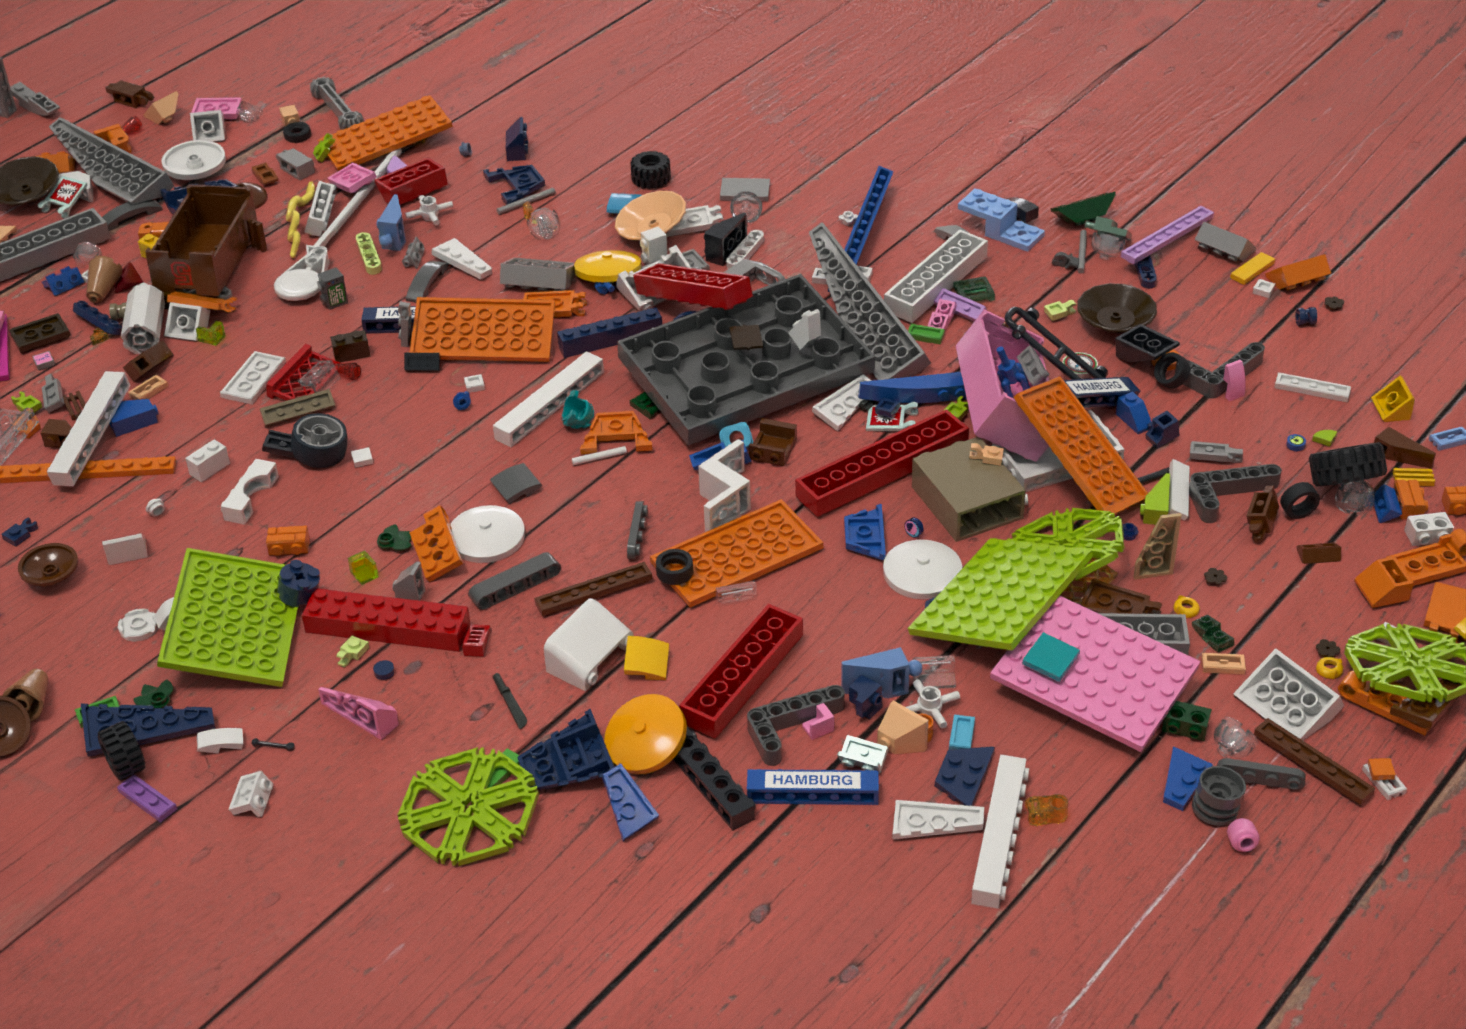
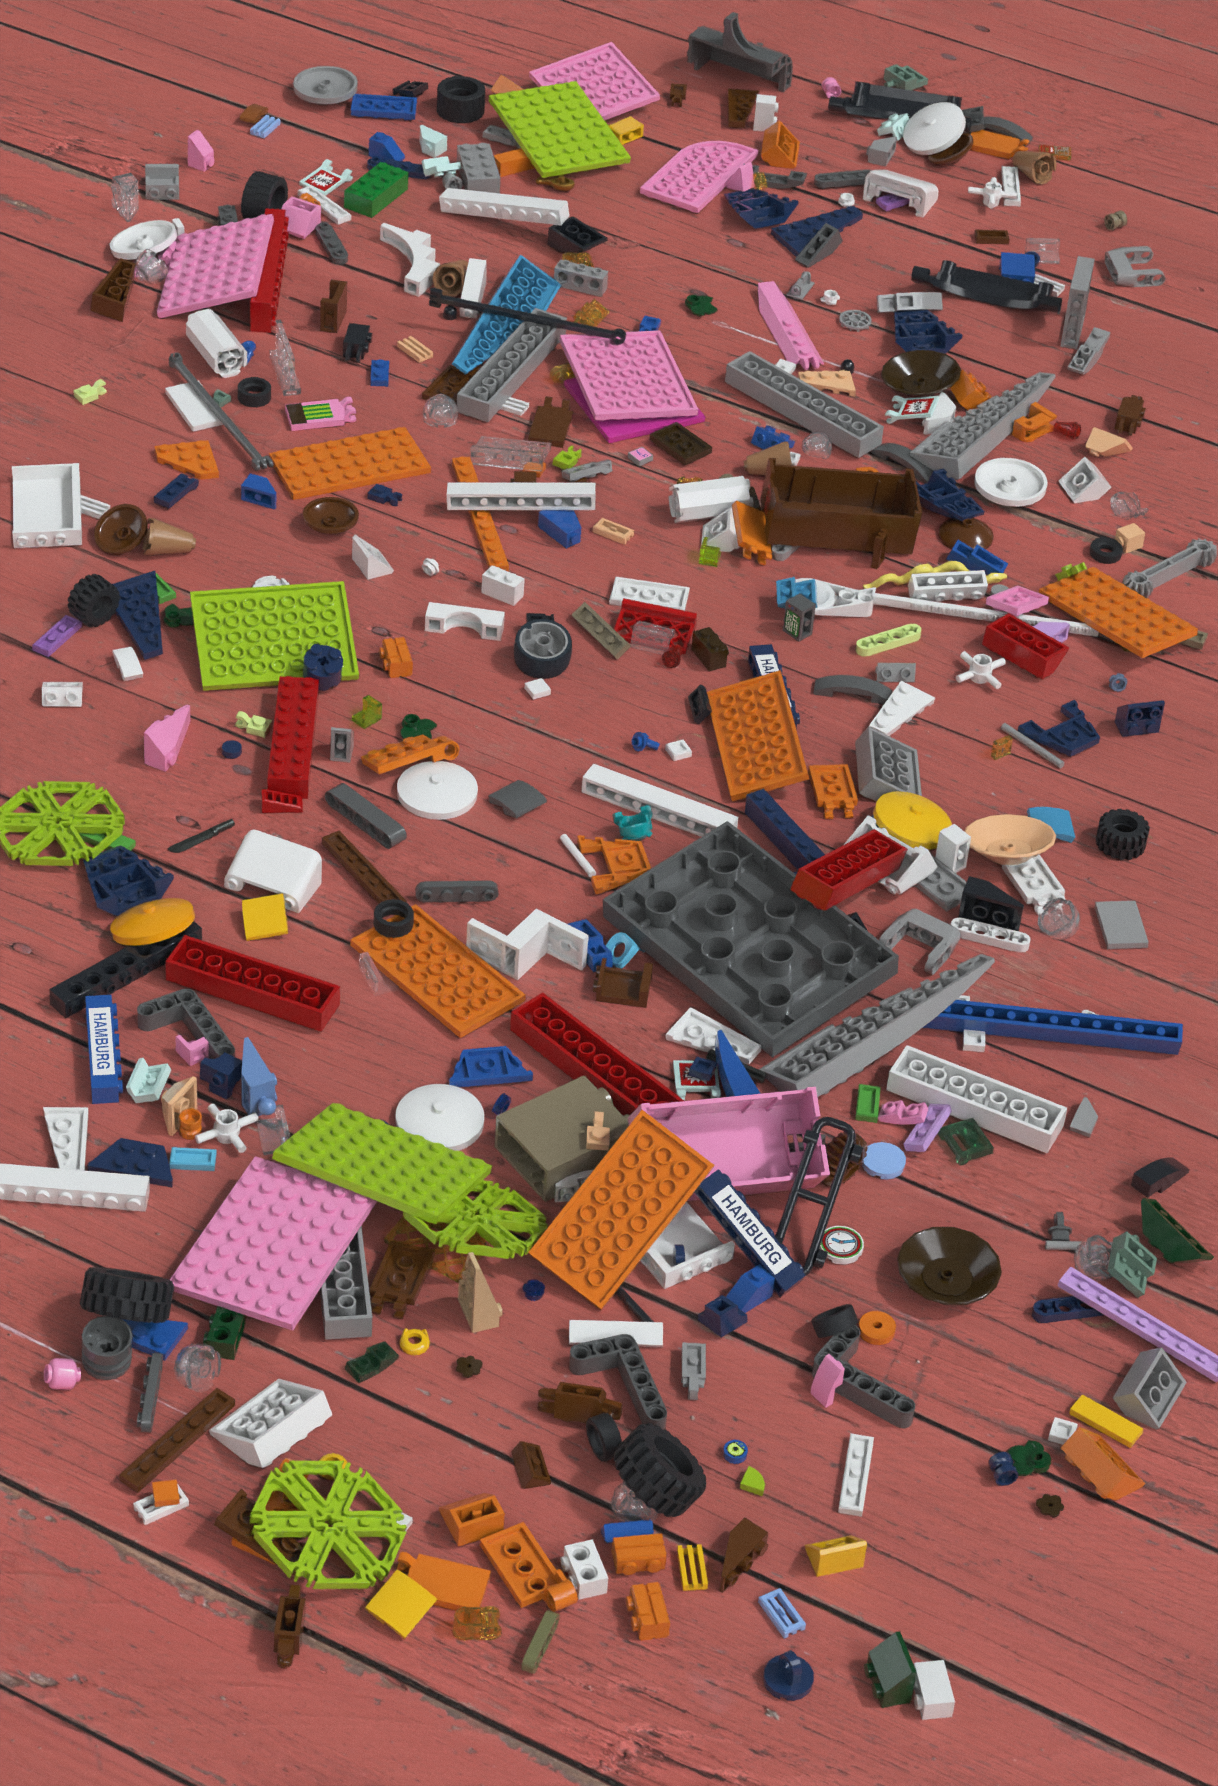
camera: 75 degrees right, 0 degrees up
(97, 318) = (721, 466): dark blue plate -> none
(147, 360) = (650, 518): reddish brown slope -> none
(226, 105) = (1128, 479): bright pink plate -> none
(264, 174) = (1014, 541): dark orange slope -> none
(282, 194) = (976, 558): none -> blue slope
(289, 746) = (128, 708): black hinge -> none
(295, 163) = (1037, 558): light grey brick -> none
(300, 285) = (789, 588): none -> dark azure slope
(391, 226) = (933, 642): medium blue slope -> none
(405, 322) = (745, 669): light grey hinge -> none
(544, 224) = (970, 758): clear cylinder -> none
(628, 802) = (64, 924): blue wing -> none
(746, 337) = (766, 923): dark brown piece -> none
(807, 329) = (786, 966): white slope -> none
(1001, 219) = (1119, 1155): light blue bracket -> none
(1010, 373) = (748, 1148): blue plant -> none
(1032, 366) = (768, 1167): light grey plate -> none
(1048, 809) = (86, 1223): clear yellow piece -> none
(1051, 657) = (273, 1195): teal tile -> none
(1058, 310) = (945, 1217): yellowish green plate -> none
(1143, 344) = (876, 1290): black slope -> none
(1156, 501) = (585, 1307): lime slope -> none
(1172, 766) = (126, 1295): none -> black tyre
(1227, 663) = (326, 1385): light nougat tile -> none
(1290, 303) = (1030, 1458): none -> dark green plate
(1327, 648) = (362, 1461): dark brown plant -> none

